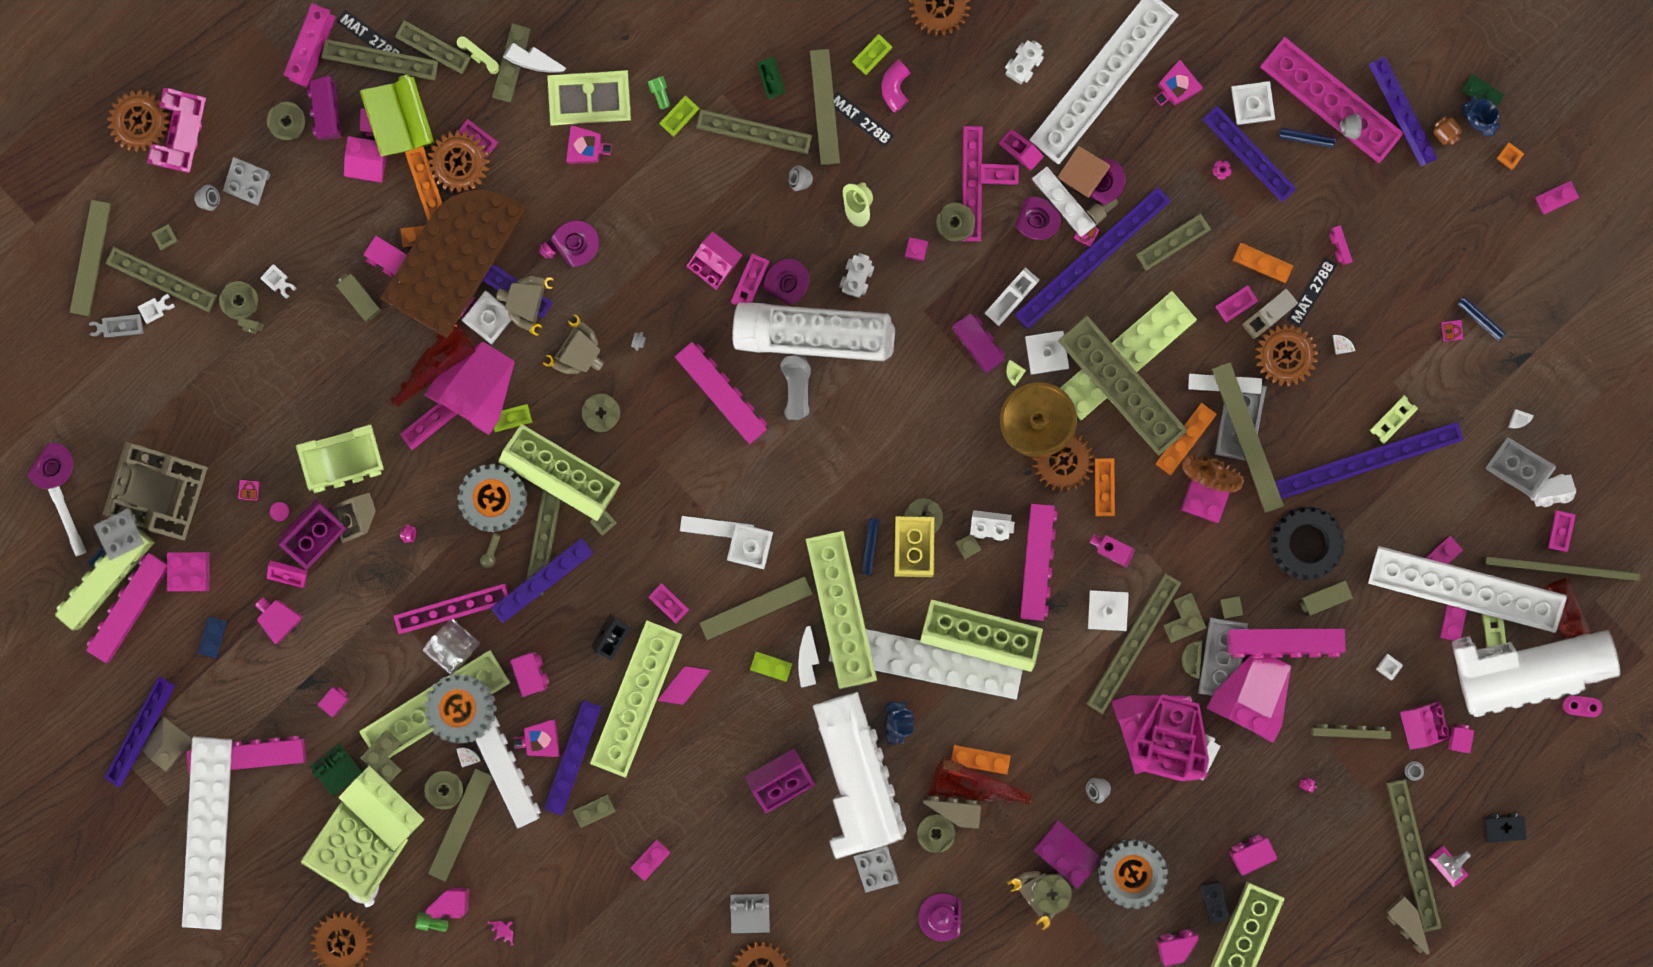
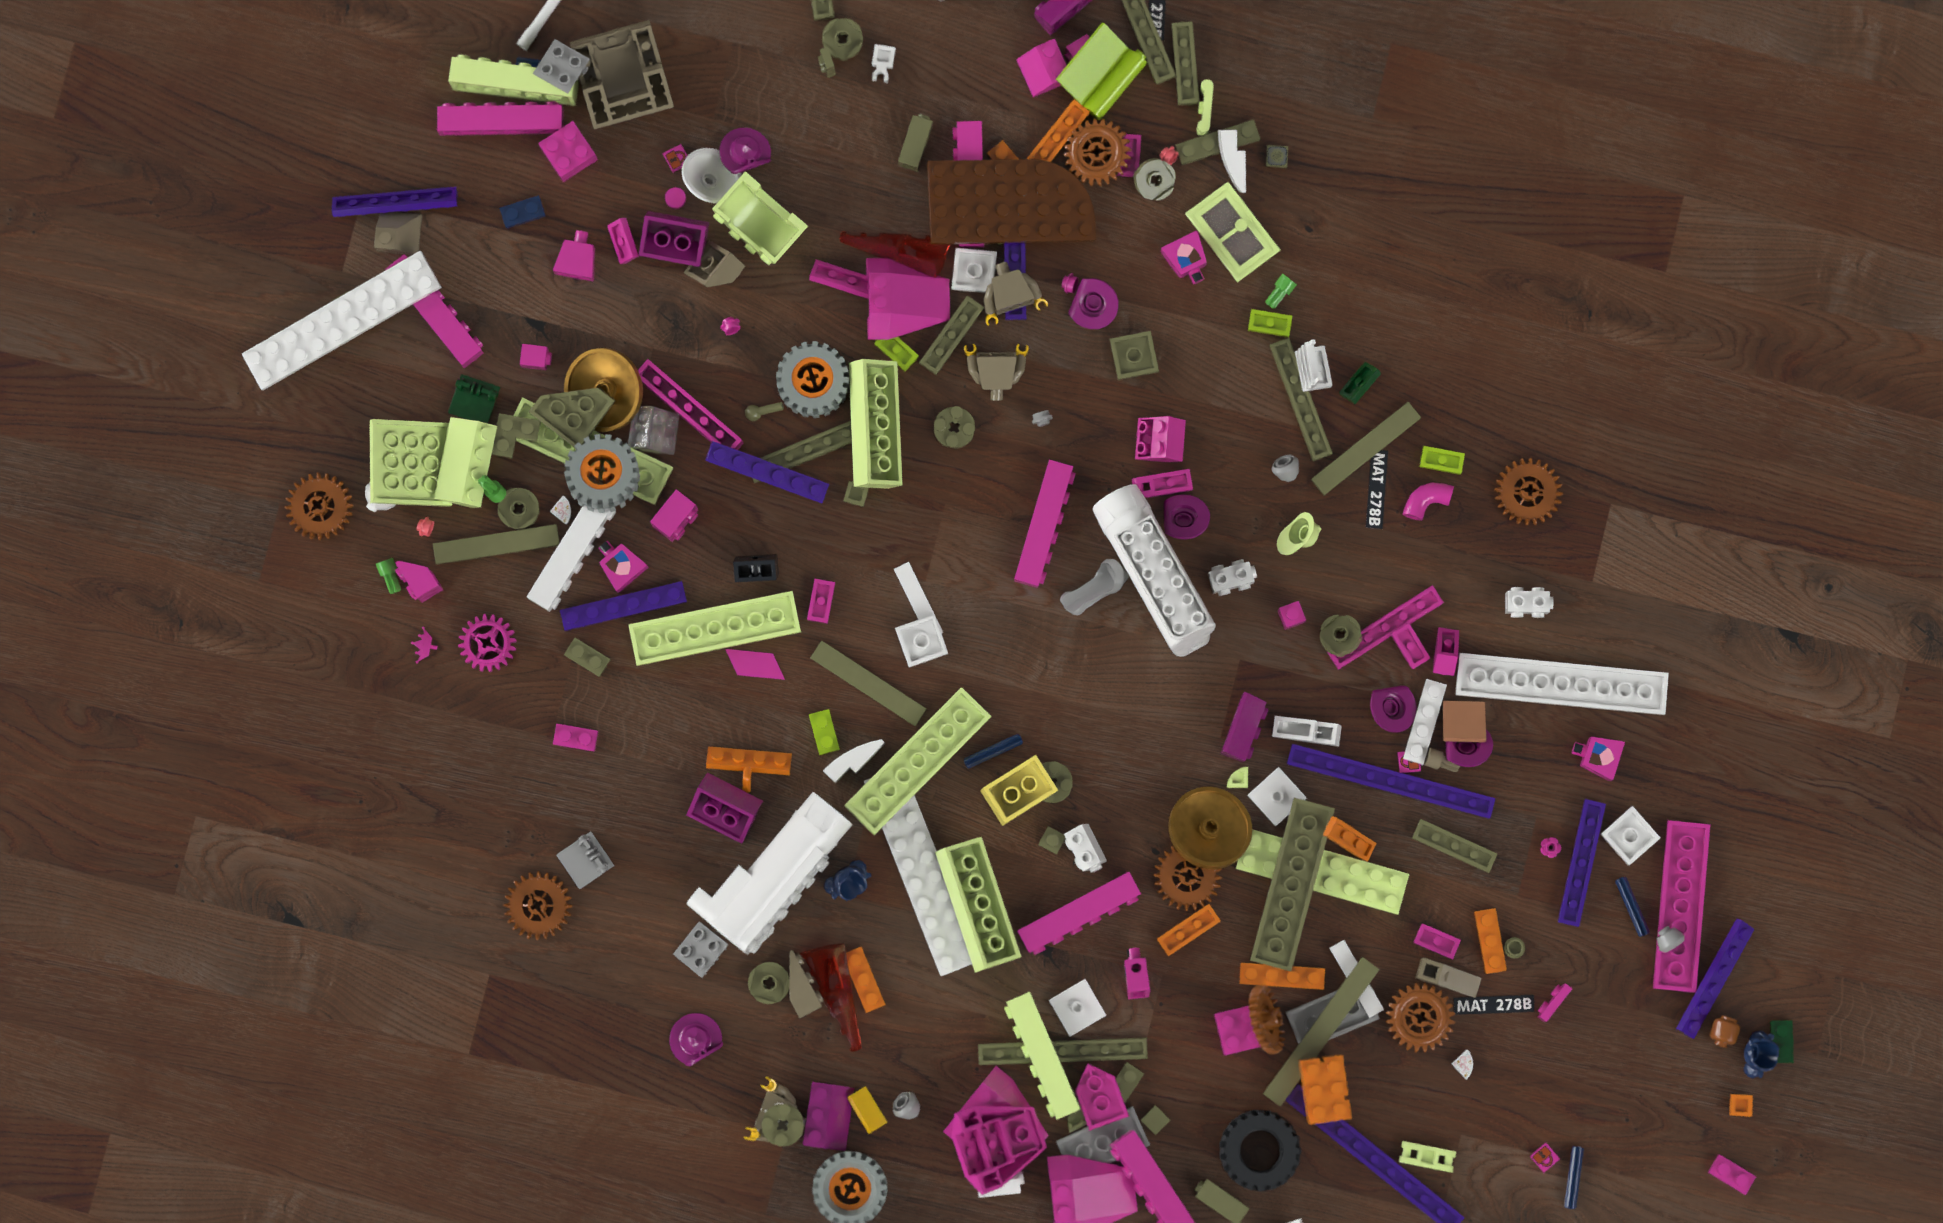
camera: 55 degrees right, 5 degrees down
(274, 467) = (706, 166): none -> white dish
(277, 434) = (744, 150): none -> magenta hat
(394, 665) = (616, 376): none -> pearl gold dish
(398, 700) = (573, 413): none -> olive plate
(411, 871) = (425, 527): none -> coral plate
(416, 801) = (492, 489): none -> bright green piece
(497, 108) = (1169, 155): none -> coral plate
(501, 138) = (1165, 181): none -> plate
(518, 888) = (503, 652): none -> dark pink gear
(528, 368) = (951, 335): none -> olive plate
(552, 24) = (1276, 156): none -> tile
(635, 237) = (1134, 355): none -> olive plate
(736, 105) = (1313, 367): none -> white plate
(757, 739) = (748, 762): none -> orange plate
(1081, 821) = (867, 1110): none -> yellow tile
(1116, 319) = (1349, 839): none -> orange plate
(1128, 661) = (1043, 1056): none -> yellowish green brick
(1188, 638) = (1100, 1098): none -> dark pink tile
(1279, 248) = (1514, 947): none -> olive plate
(1294, 464) = (1324, 1089): none -> orange piece

